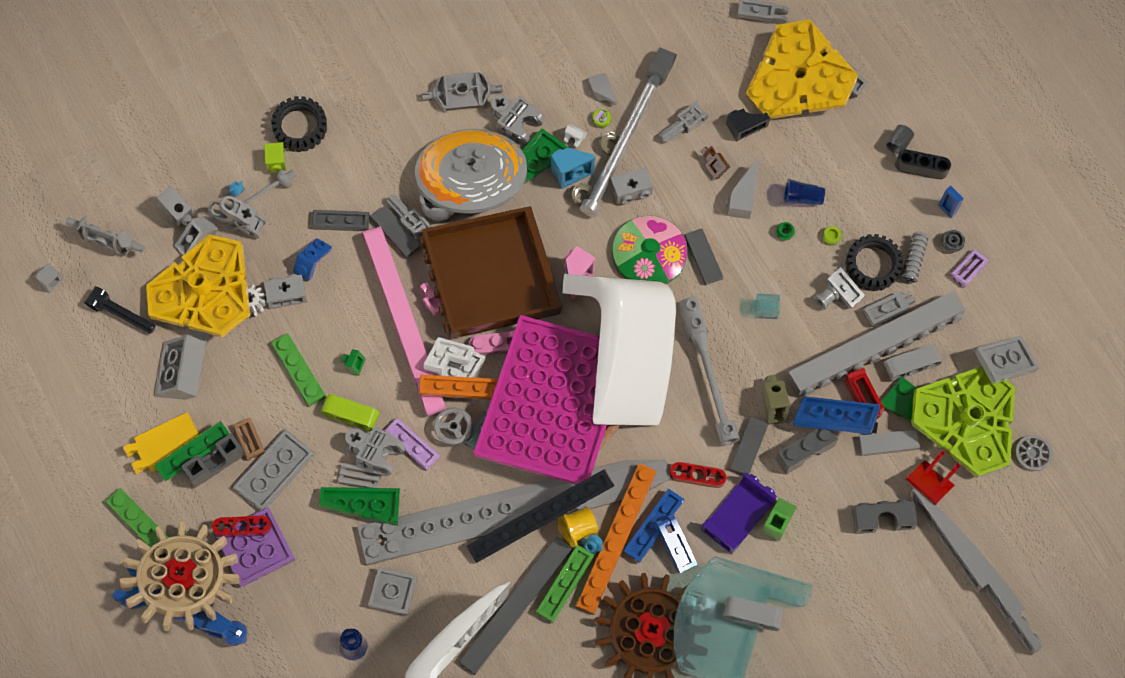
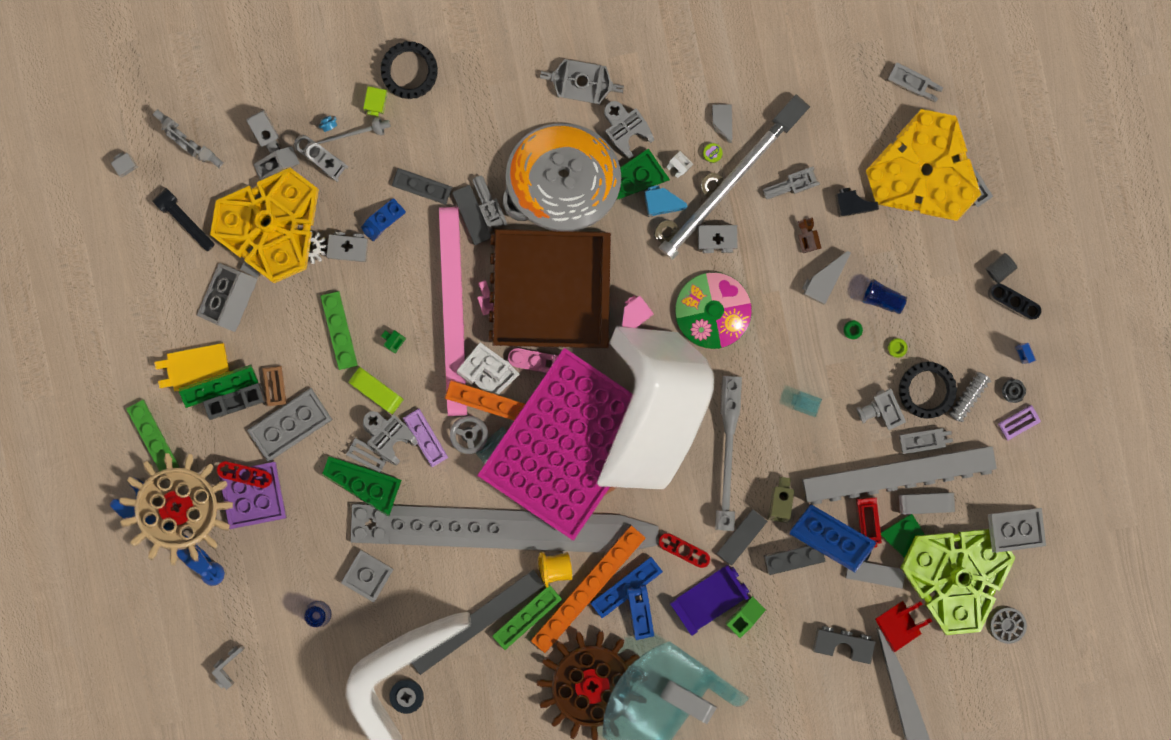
camera: 30 degrees right, 20 degrees up
(540, 515) = (522, 553): black plate -> none
(592, 543) = (563, 589): dark azure plate -> none
(703, 256) = (764, 332): dark grey tile -> none

